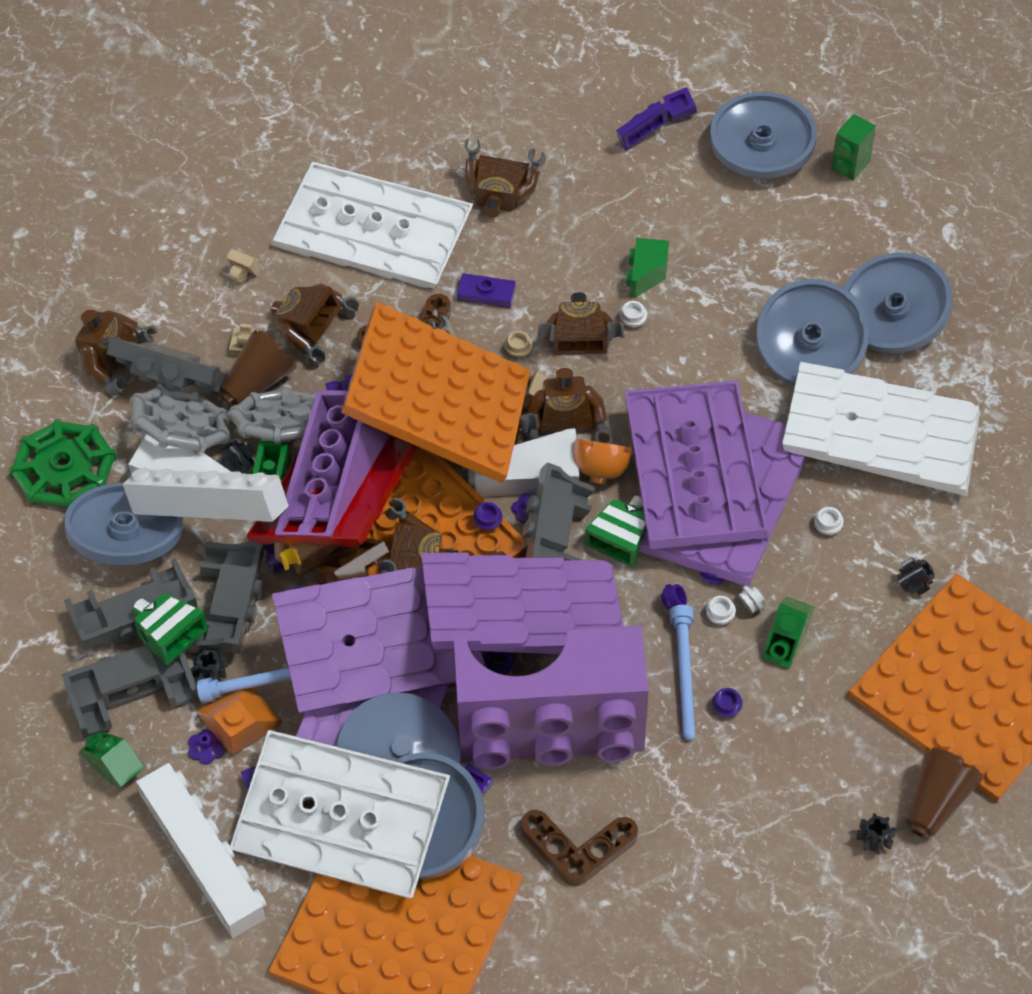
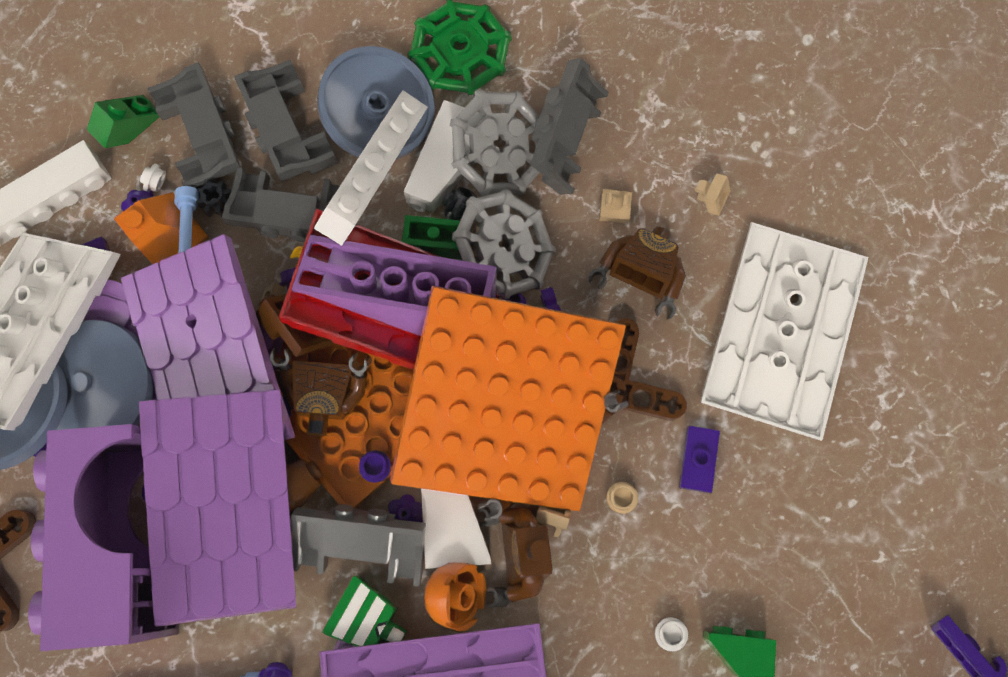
camera: 90 degrees right, 20 degrees up
(94, 341) = (607, 64): reddish brown torso -> none
(168, 625) = (233, 146): green torso -> none
(180, 726) = (153, 178): none -> white plate
(256, 368) = (571, 216): reddish brown cone -> none
(500, 182) = (857, 471): reddish brown torso -> none
(580, 327) = (644, 569): reddish brown torso -> none

